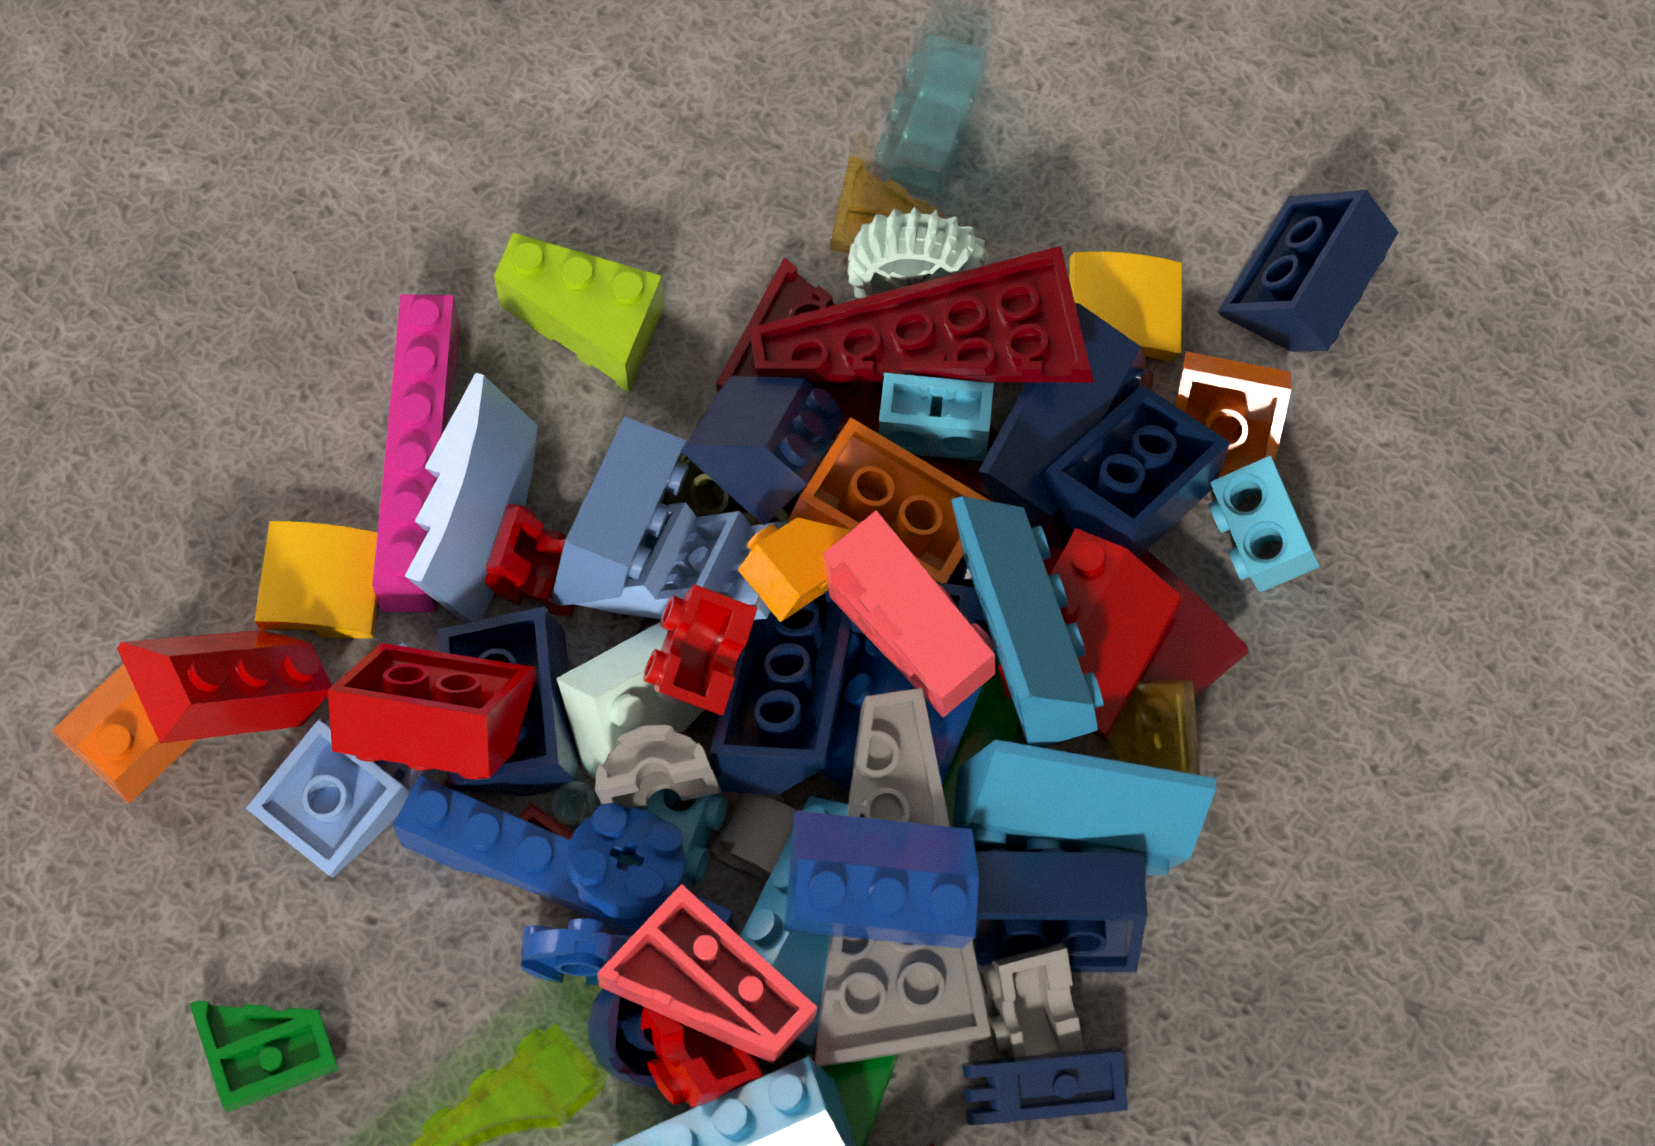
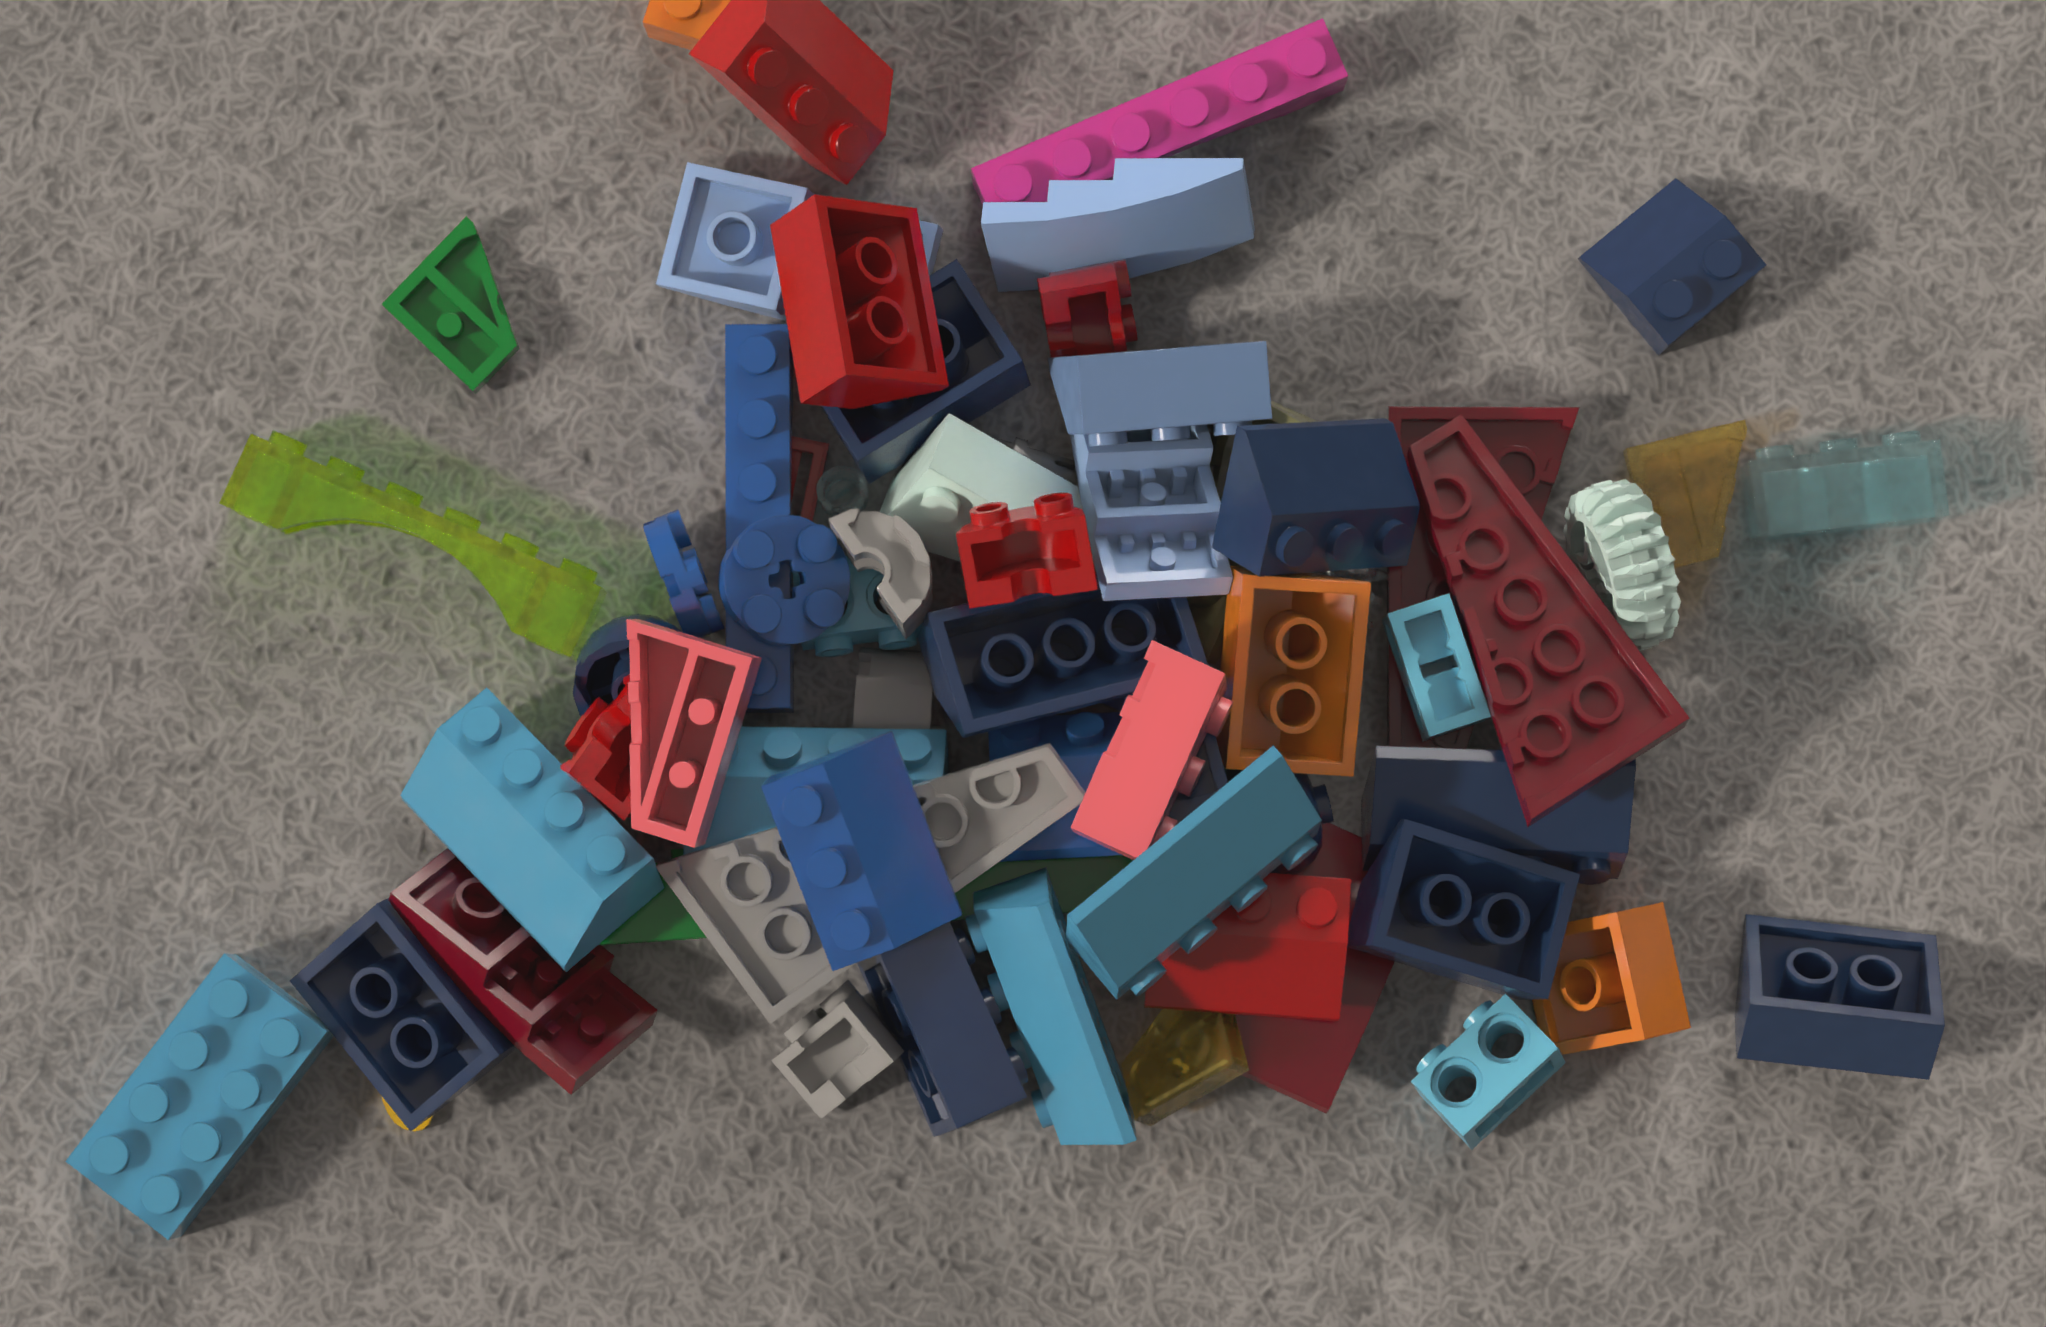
camera: 65 degrees right, 20 degrees up
(318, 580) = (969, 100): yellow slope -> none
(583, 302) = (1417, 218): lime wedge -> none
(711, 157) = (1671, 264): none -> dark blue slope
(789, 564) = (1171, 606): light orange slope -> none
(1047, 1086) = (765, 1095): dark blue hinge -> none
(1133, 295) = (1703, 809): yellow slope -> none

